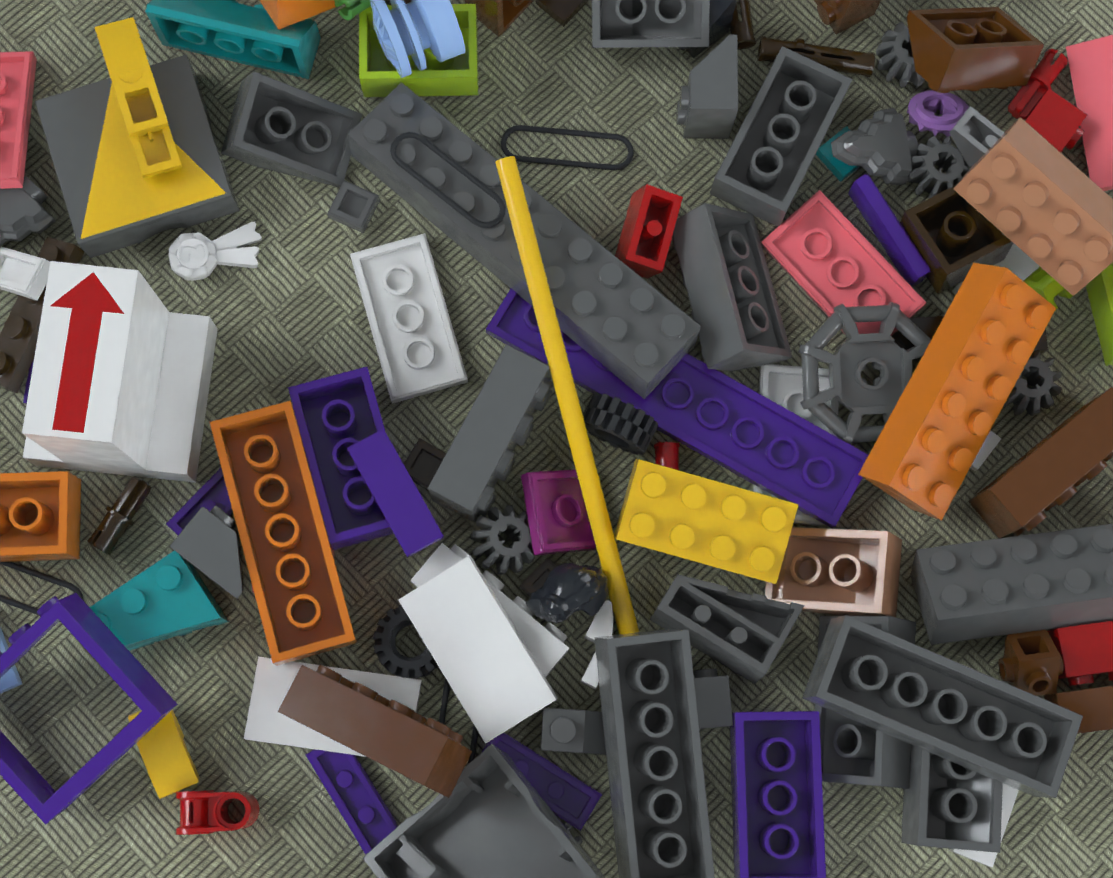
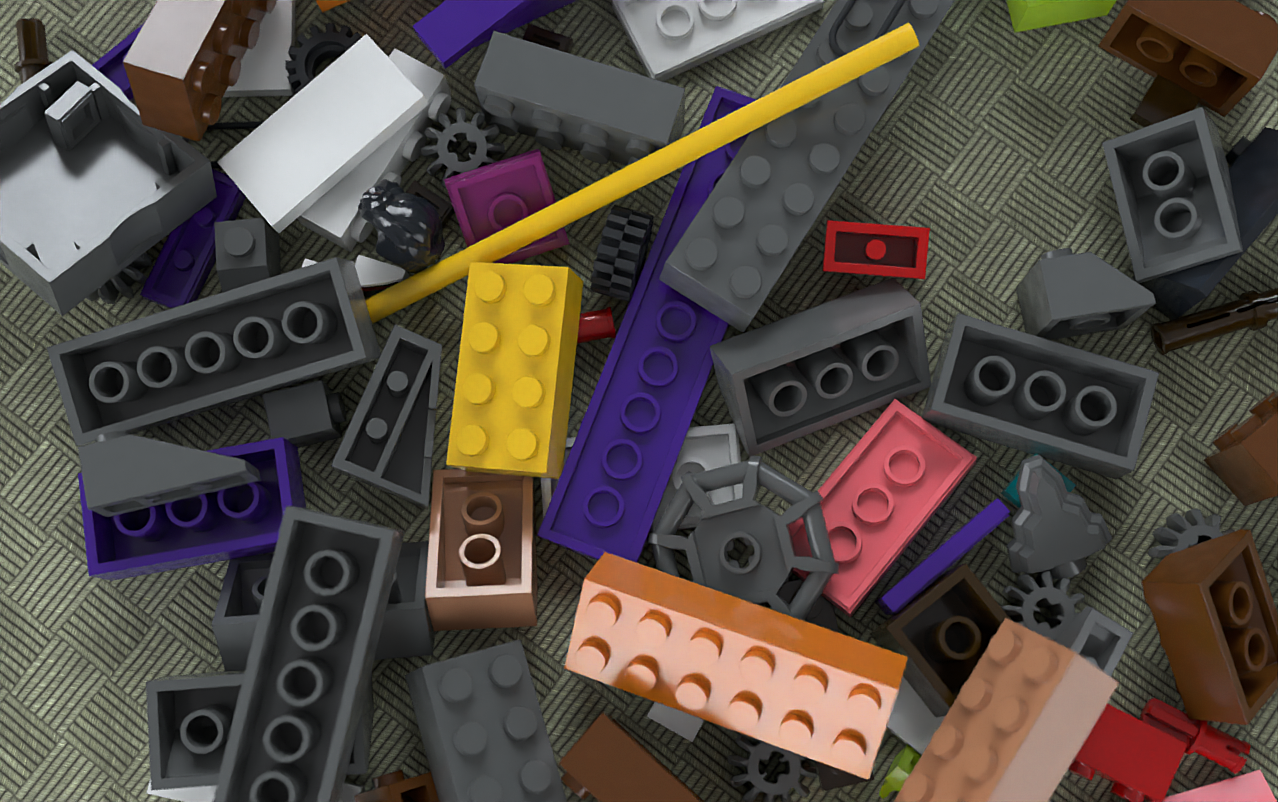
camera: 90 degrees right, 0 degrees up
(567, 162) = (991, 150): black piece -> none
(754, 824) = (139, 472): none -> dark grey slope
(832, 57) = (1166, 484): dark brown pin -> none
(925, 104) = (1124, 581): medium lavender gear -> none

